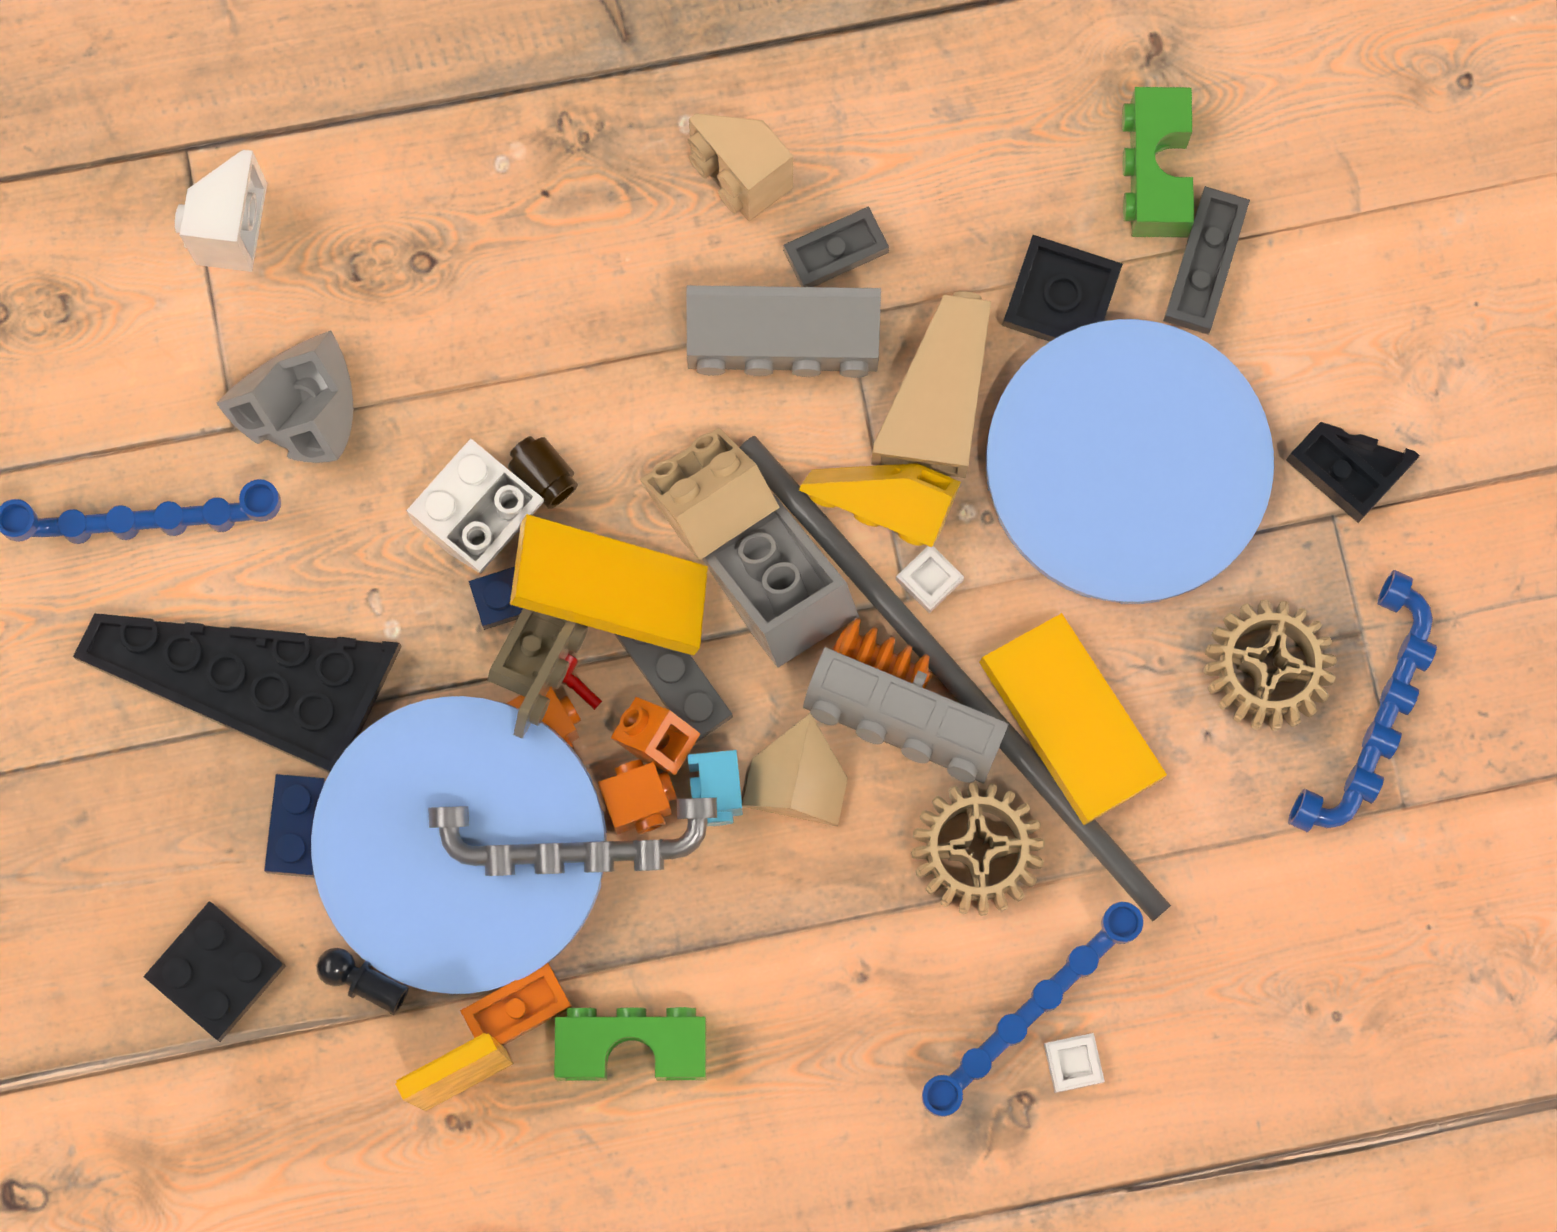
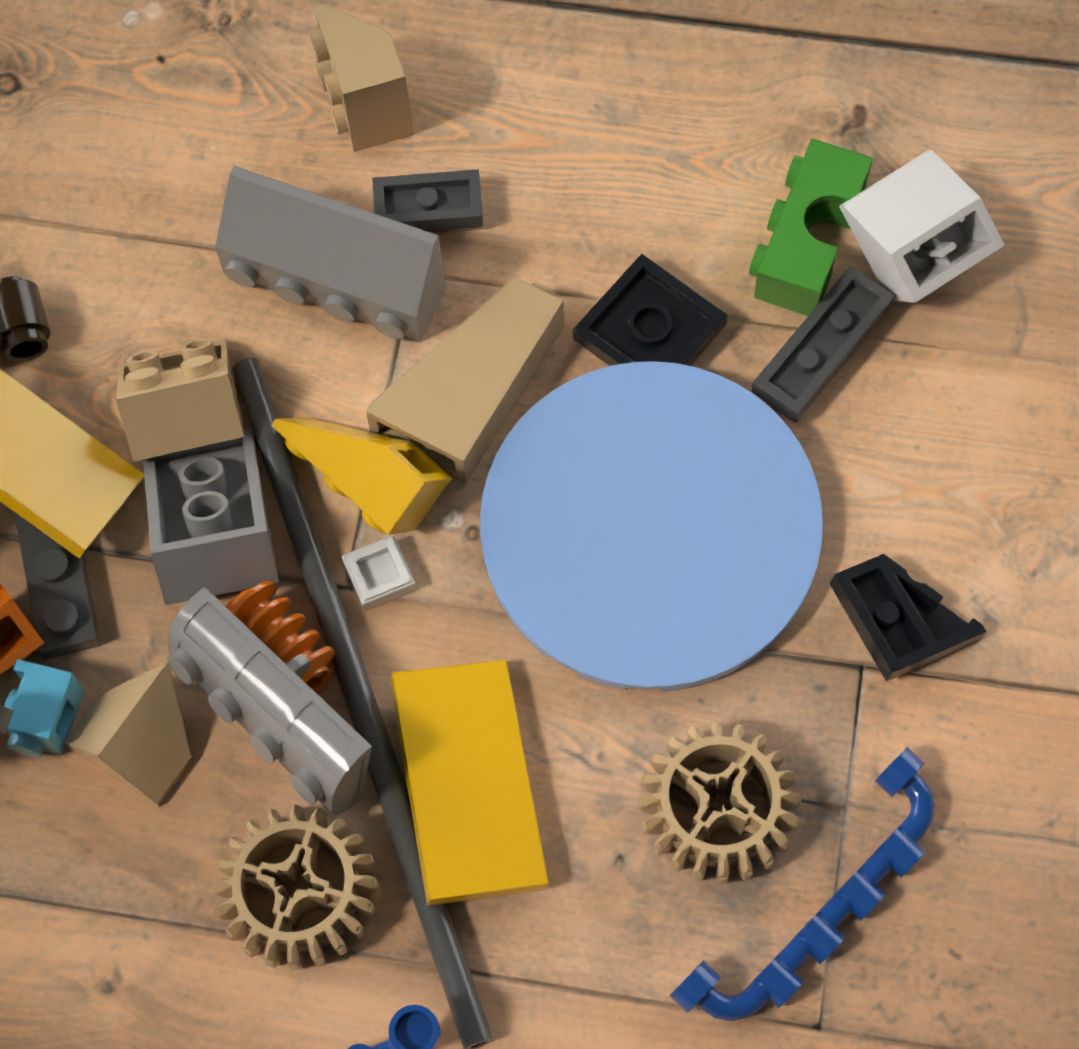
camera: 25 degrees right, 10 degrees down
(1253, 137) = (921, 227): none -> white slope

